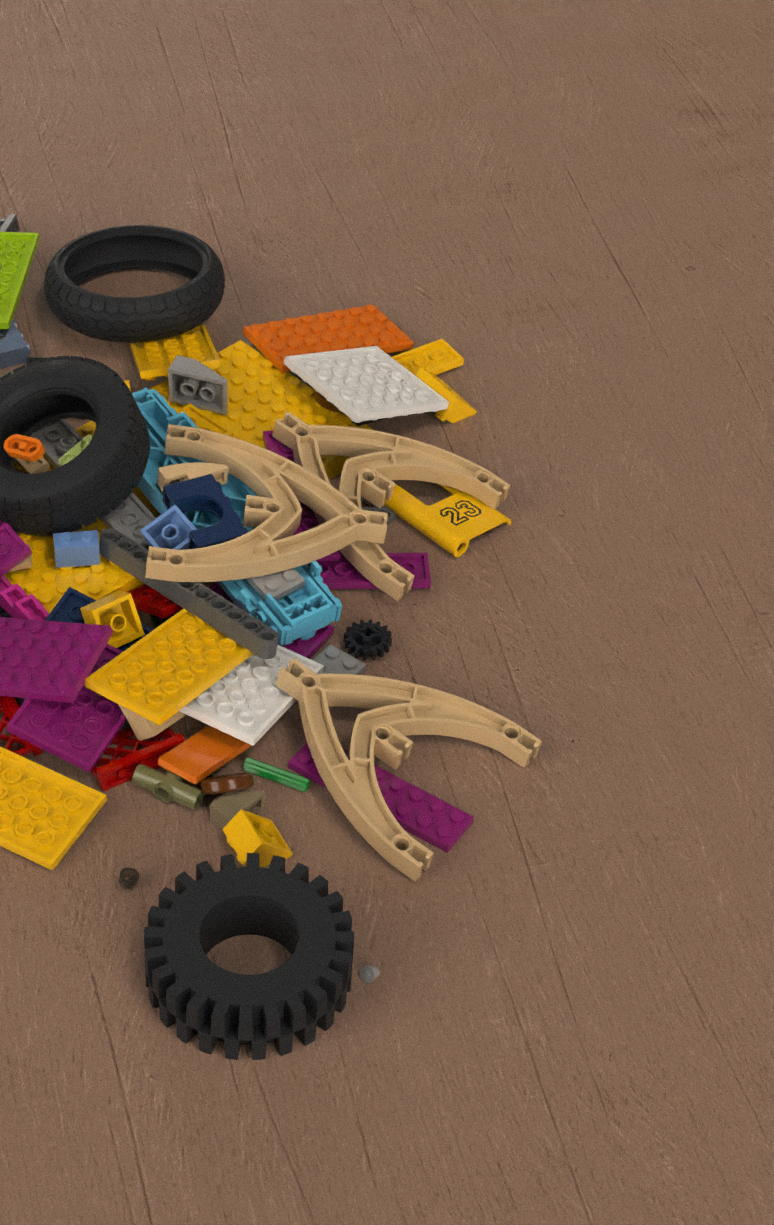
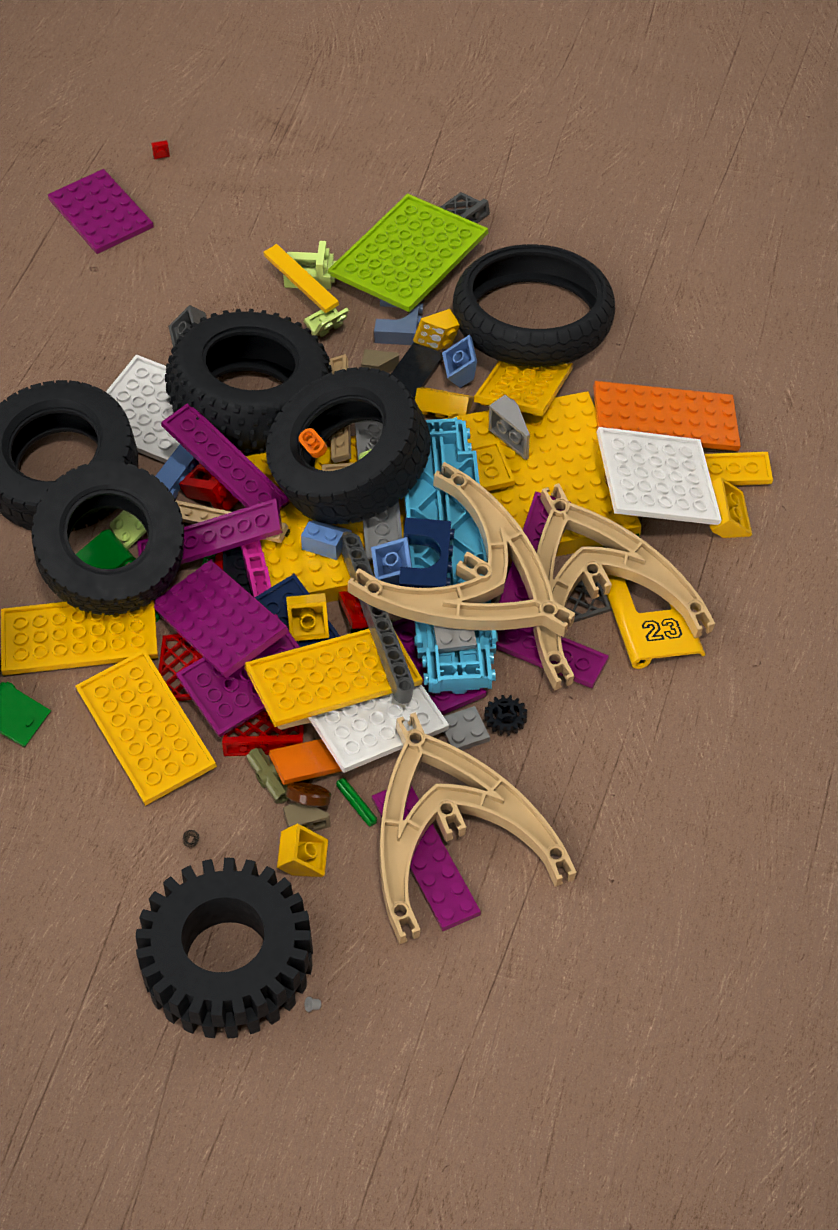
camera: 35 degrees right, 10 degrees up
(51, 335) = (437, 330): none -> yellow slope
(96, 346) = (460, 362): none -> medium blue slope
(185, 471) = (430, 510): tan slope -> none

